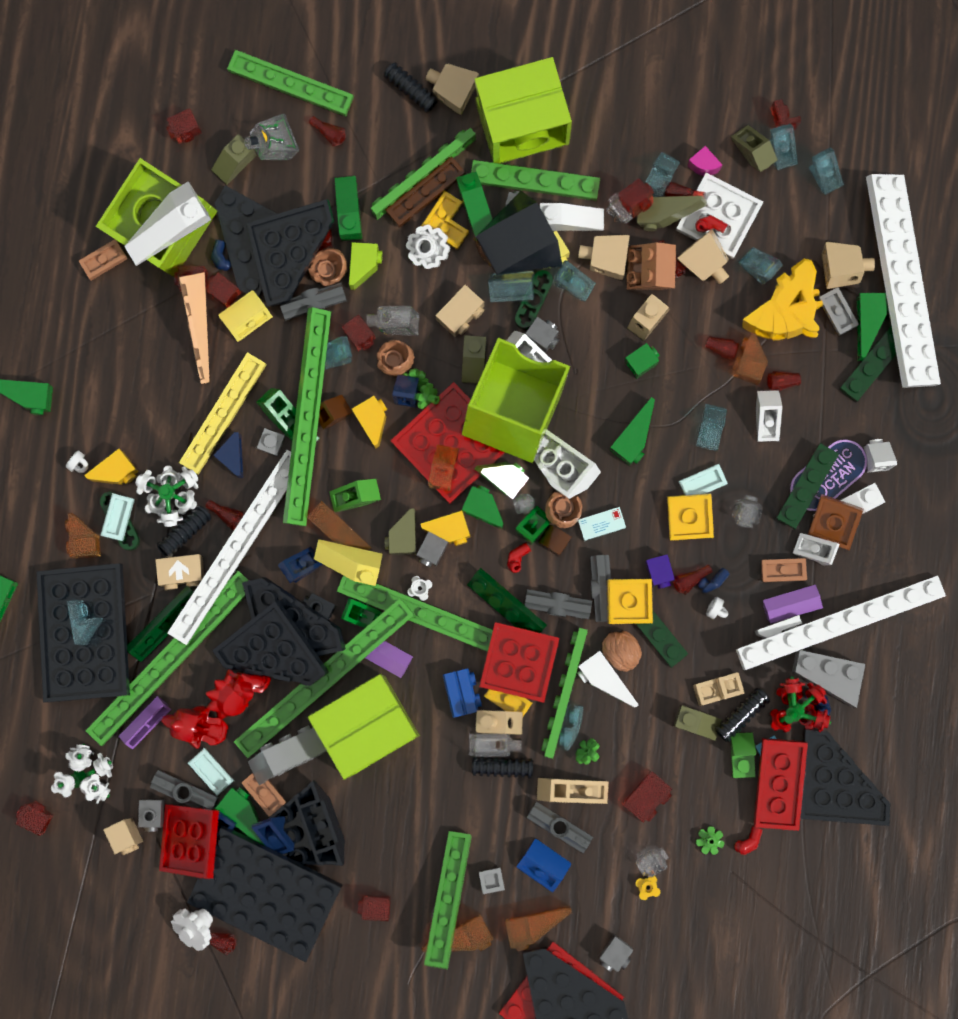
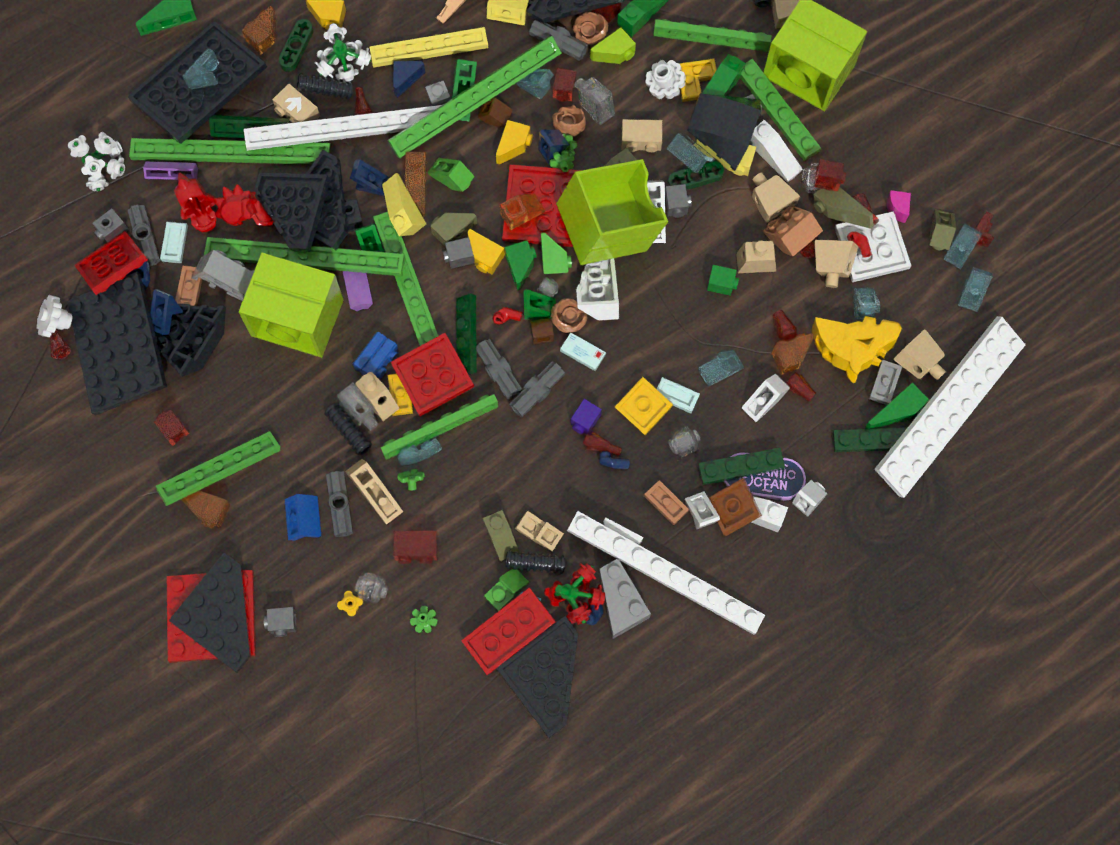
camera: 40 degrees right, 10 degrees down
(34, 818) = (42, 156): clear red brick -> none
(117, 517) = (296, 39): light aqua tile -> none
(123, 836) = (77, 218): tan brick -> none
(241, 810) = (162, 277): green slope -> none
(422, 594) = (425, 264): white plate -> none
(425, 192) = (699, 46): reddish brown plate -> none
(491, 880) = (259, 490): light grey plate -> none
(529, 928) = (249, 546): clear orange slope -> none
(574, 281) = (733, 188): clear light blue slope -> none
(603, 677) = (474, 439): white slope -> none
(621, 650) = (505, 440): nougat hair -> none
(629, 601) = (544, 412): yellow tile -> none
(633, 439) = (663, 320): green slope -> none
(662, 173) = (867, 183): clear light blue slope -> none
(663, 640) = (541, 447): dark green plate -> none
(716, 608) = (595, 479): white tile -> none
(750, 844) = (445, 649): red arm -> none
(792, 604) = (648, 528): medium lavender piece -> none

